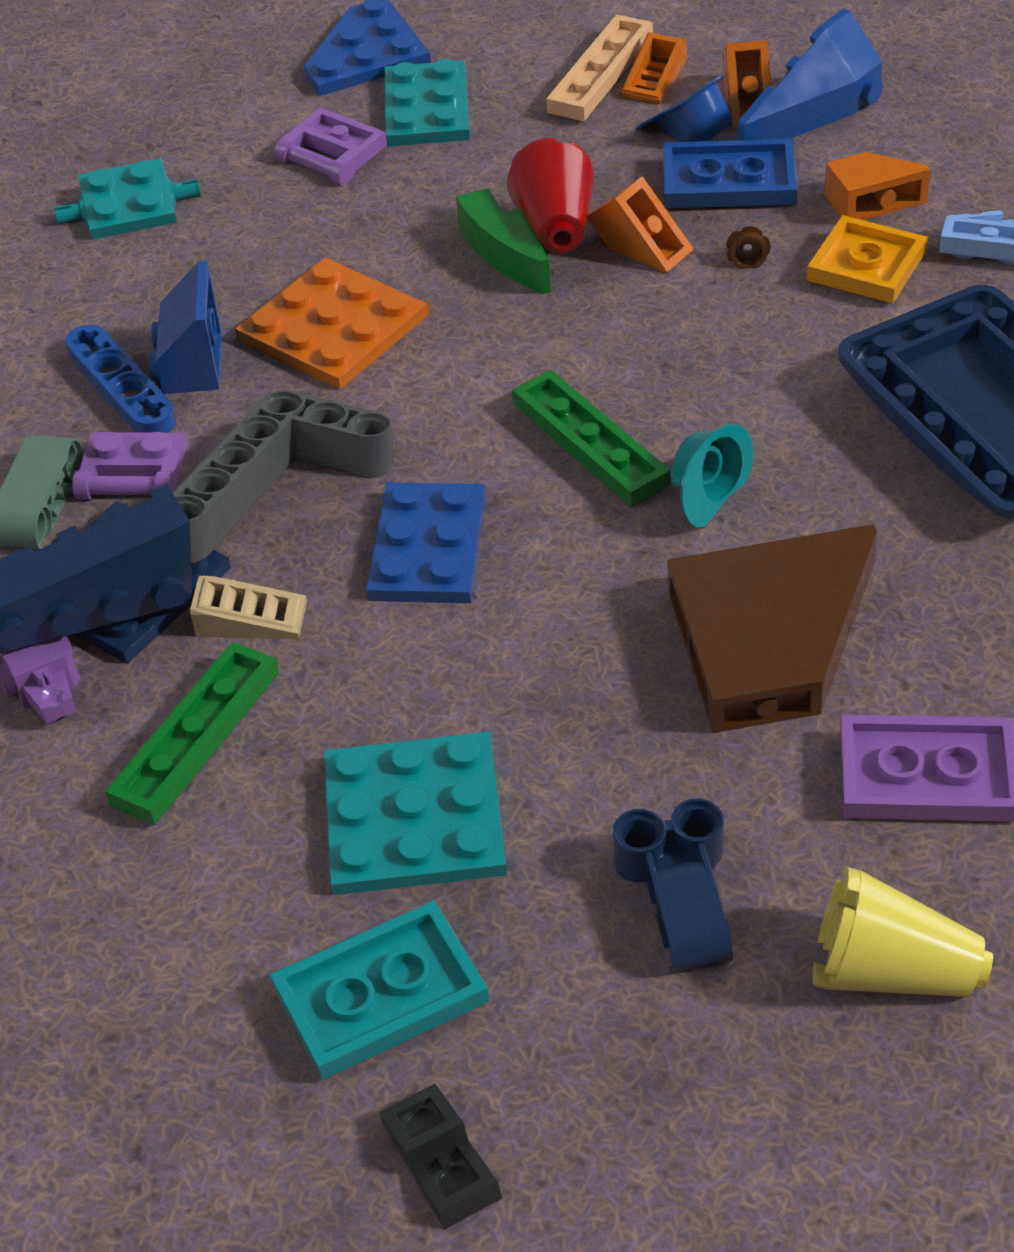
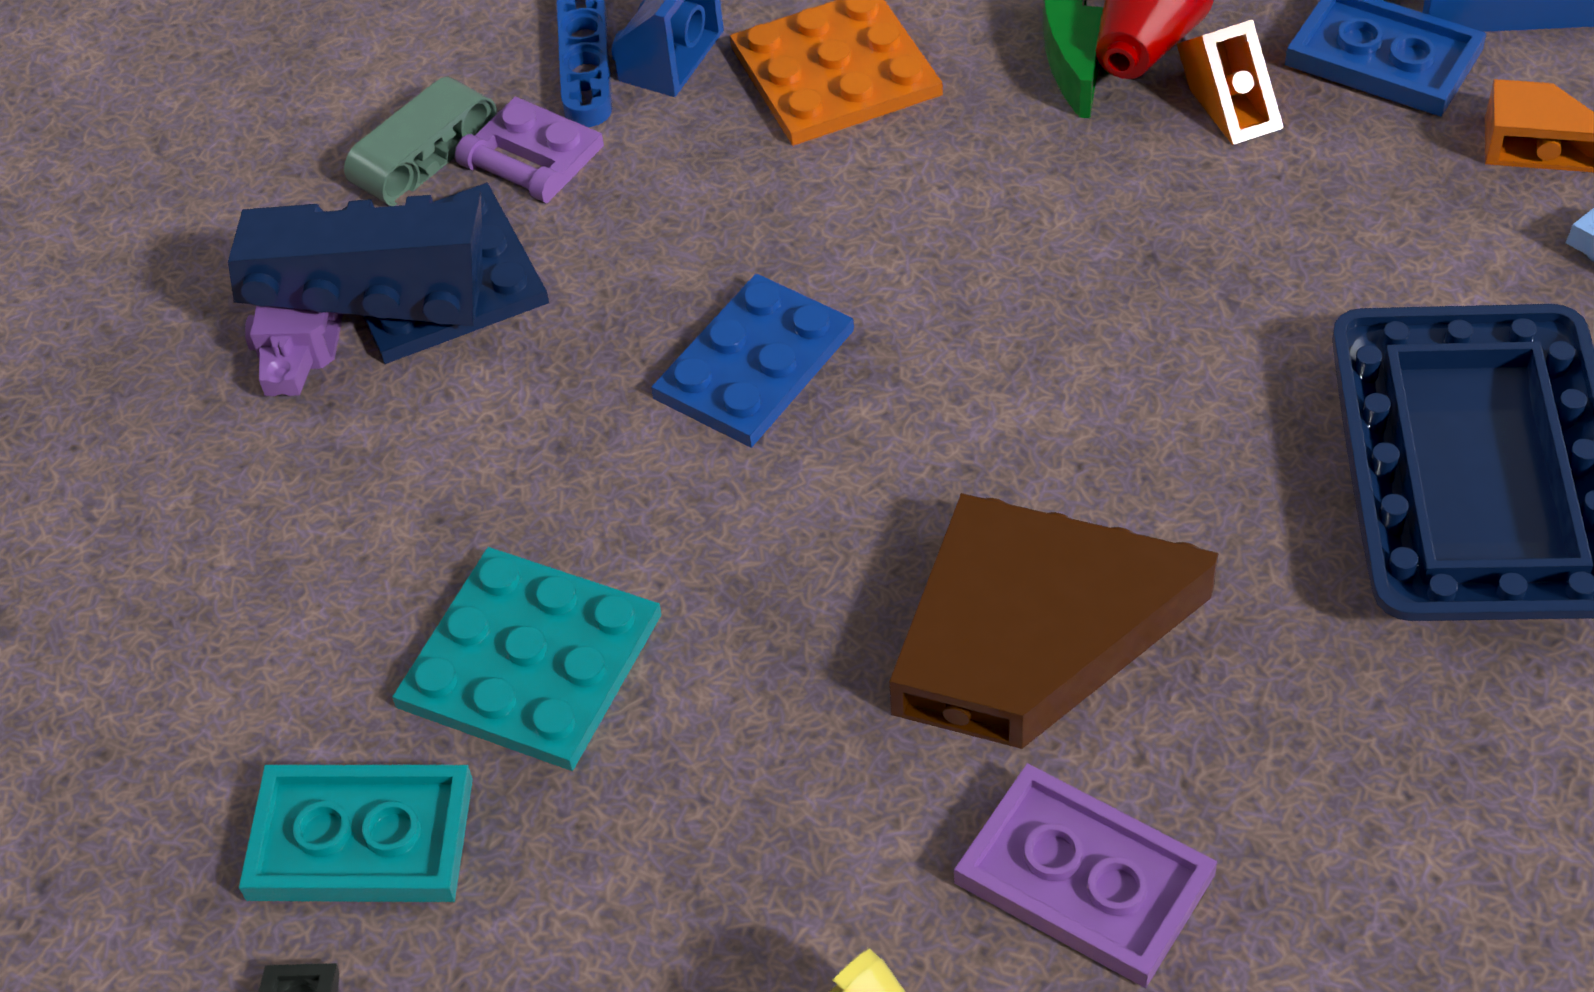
camera: 30 degrees right, 5 degrees up
(192, 733) = (384, 467): green plate -> none
(227, 594) = (499, 331): tan slope -> none
(264, 444) = (633, 191): dark grey beam -> none
(591, 438) = (1002, 312): green plate -> none
(679, 877) = (721, 869): dark blue piece -> none
(711, 469) = (1090, 407): teal piece -> none
(758, 252) = (1327, 152): reddish brown plate -> none
(867, 259) = (1471, 218): light orange plate -> none

